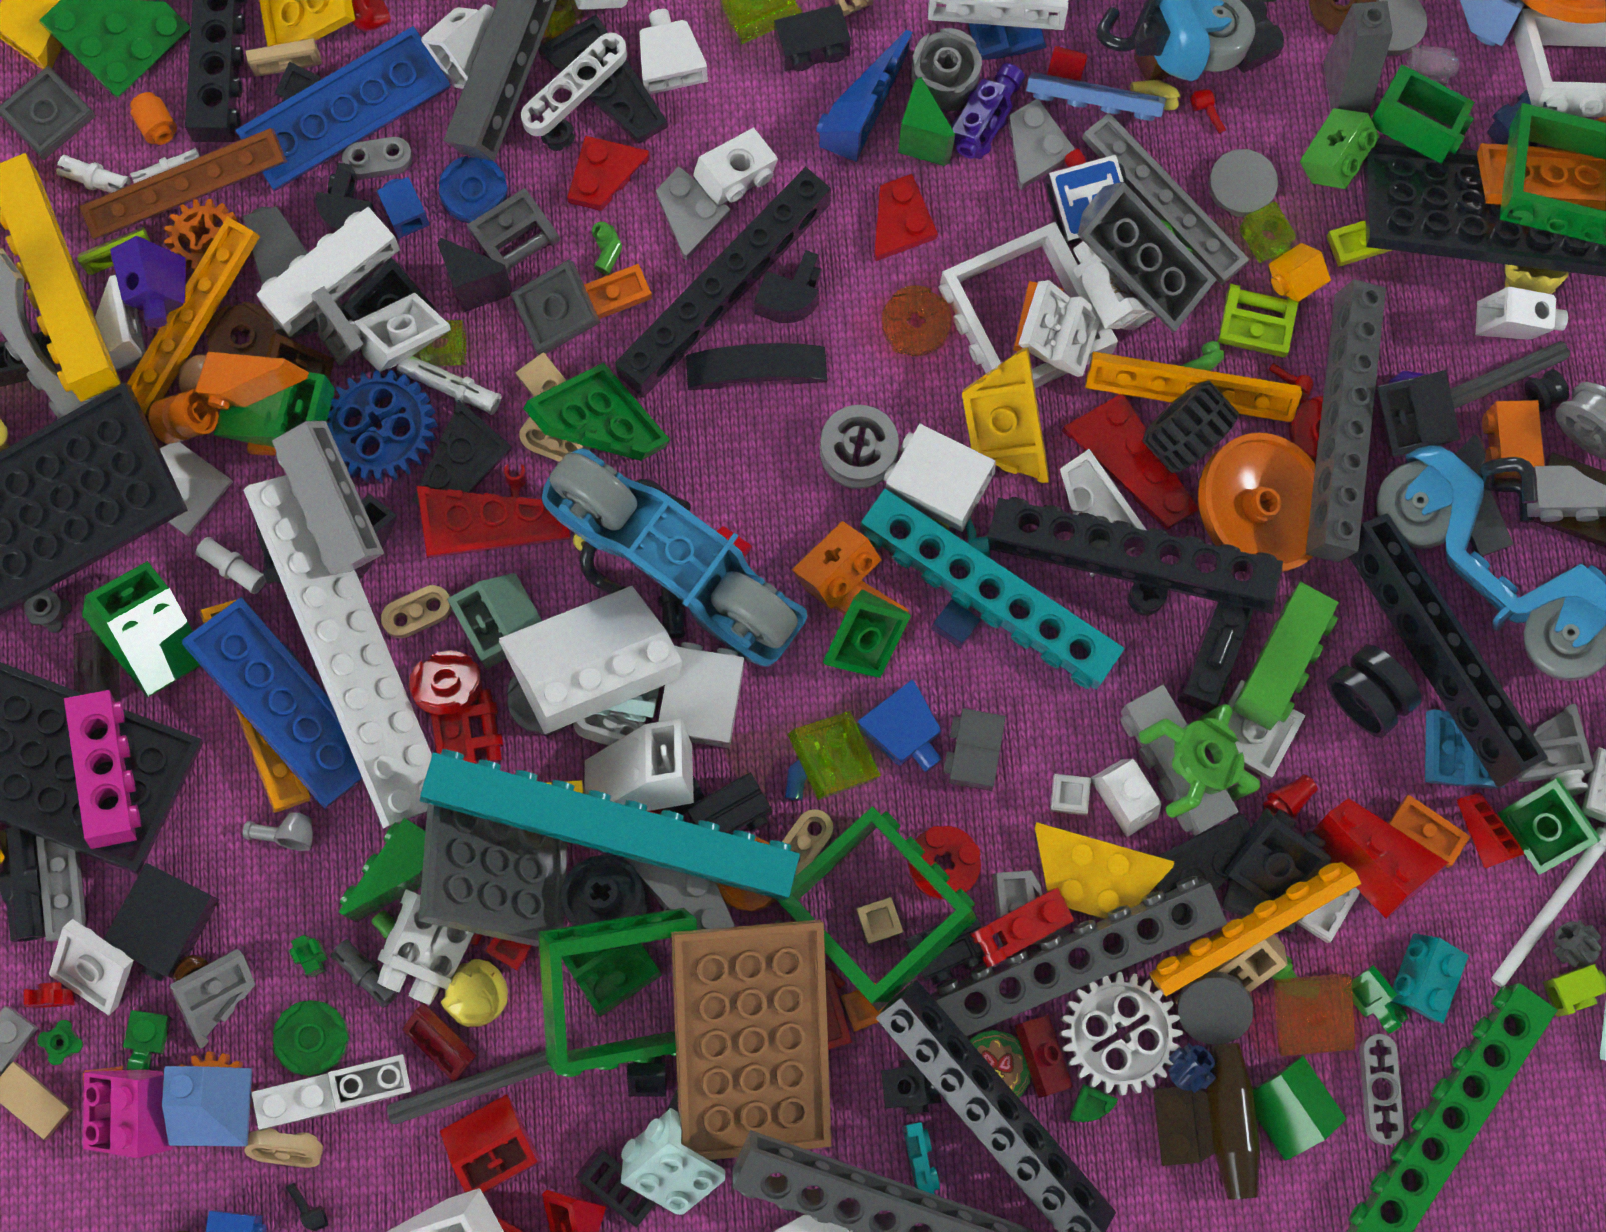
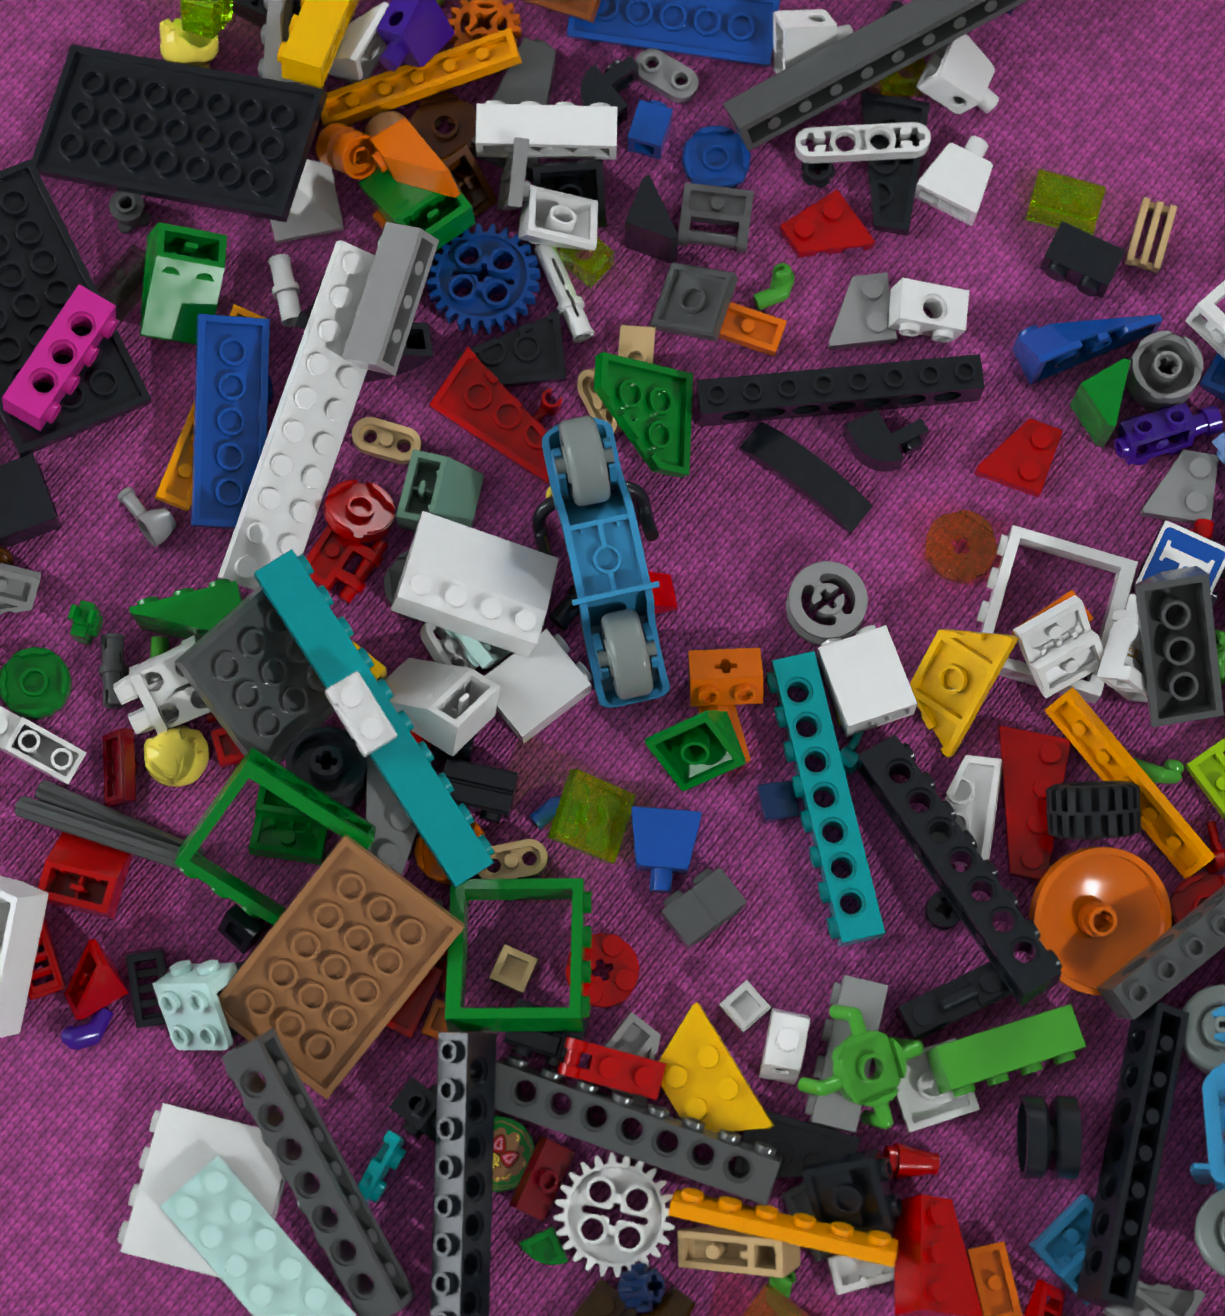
camera: 45 degrees right, 0 degrees up
(468, 1106) = (97, 831): none -> dark grey axle
(603, 830) = (360, 714): none -> white brick
(1215, 1008) = (701, 1261): dark grey tile -> none

